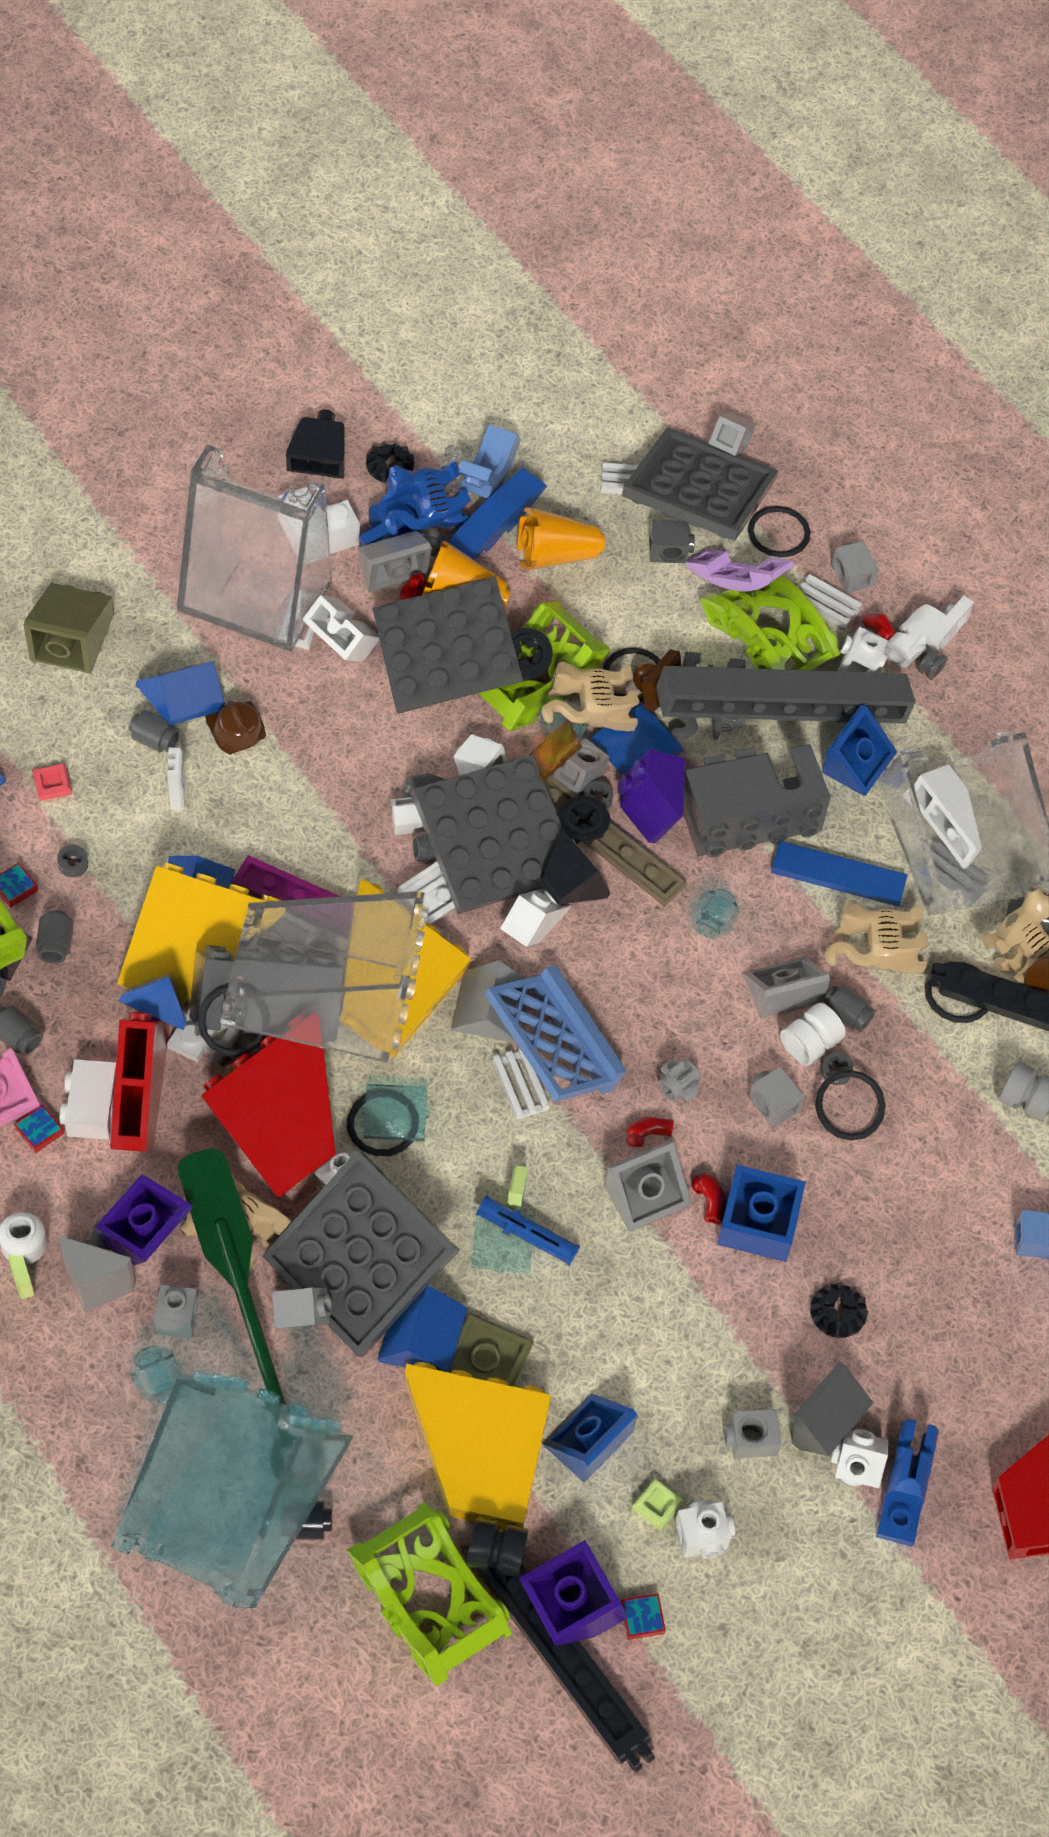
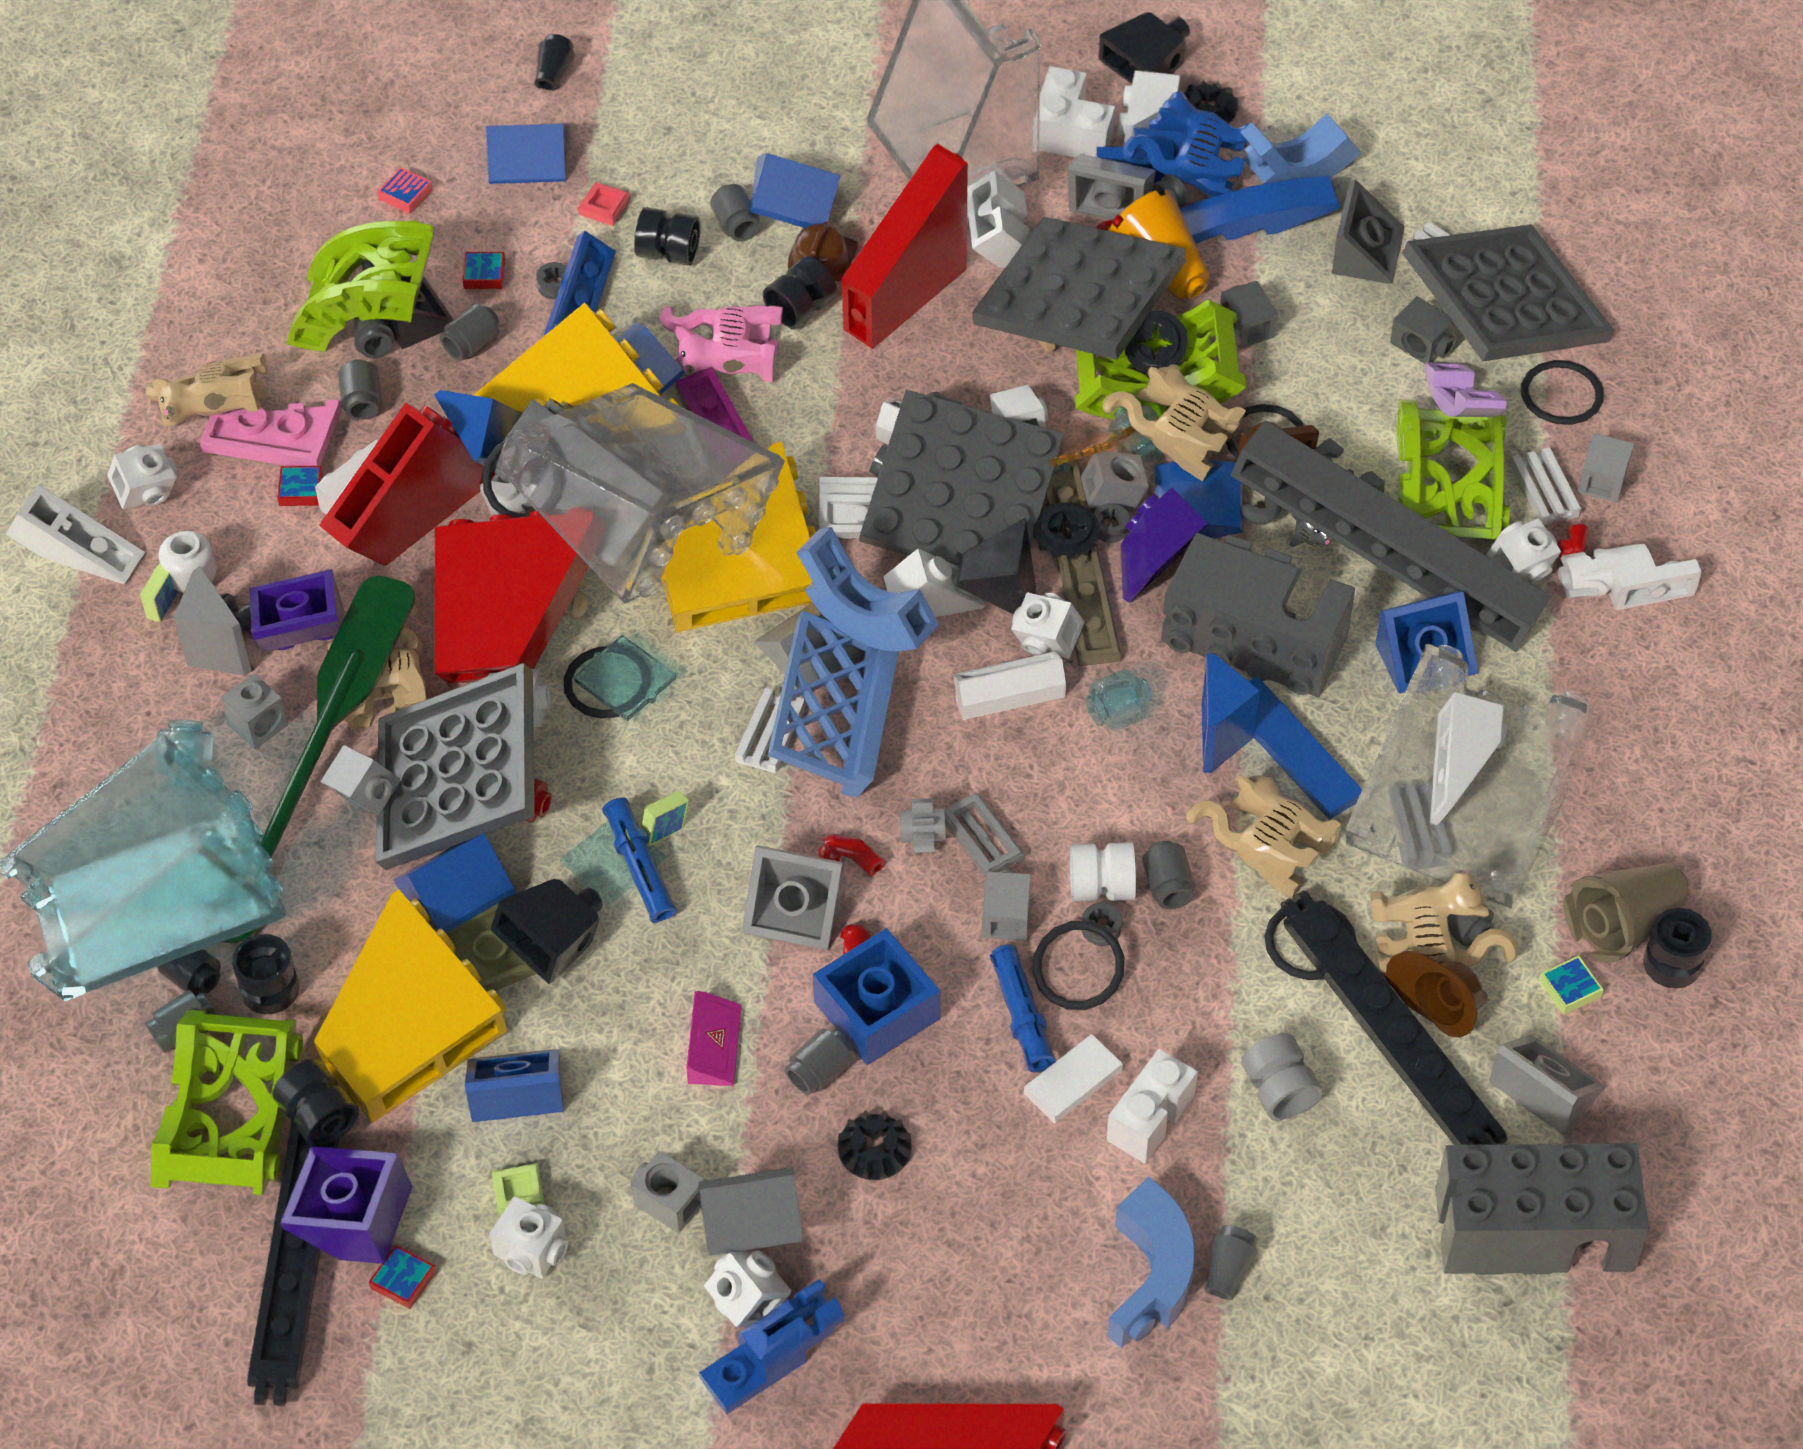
camera: 45 degrees right, 5 degrees down
(68, 627) = (744, 75): olive slope -> none
(105, 864) = (583, 278): none -> blue tile
(128, 778) = (669, 236): none -> black wheel
(176, 779) = (705, 258): white tile -> none
(241, 824) = (738, 344): none -> bright pink animal
(256, 763) = (801, 291): none -> black wheel
(320, 686) = (911, 251): none -> red slope
(334, 1564) = (165, 1019): none -> dark grey brick
(358, 483) = (1145, 99): none -> white slope
(368, 1486) = (265, 973): none -> black wheel
(521, 1317) = (548, 925): none -> black torso
(526, 960) = (858, 607): none -> medium blue arch
(554, 588) = (1254, 313): none -> dark grey brick
(556, 540) = (1300, 262): light orange cone -> none
(575, 496) = (1366, 238): none -> dark grey slope
(626, 882) = (1047, 625): none -> white brick
(642, 948) = (1010, 685): none -> white piece
(682, 1316) = (713, 1040): none -> dark pink slope
(713, 1073) = (999, 862): none -> light grey tile
(732, 433) = (1594, 265): light grey brick -> none
(761, 1280) = (819, 1061): none -> dark grey brick
(787, 986) = (1121, 813): light grey slope -> none
(790, 878) = (1227, 712): none -> blue slope
(836, 1152) = (1027, 1023): none -> blue pin
(911, 1180) = (1073, 1078): none -> white tile
(932, 664) = (1601, 610): dark grey bush -> none
(977, 1174) = (1156, 1095): none -> white brick

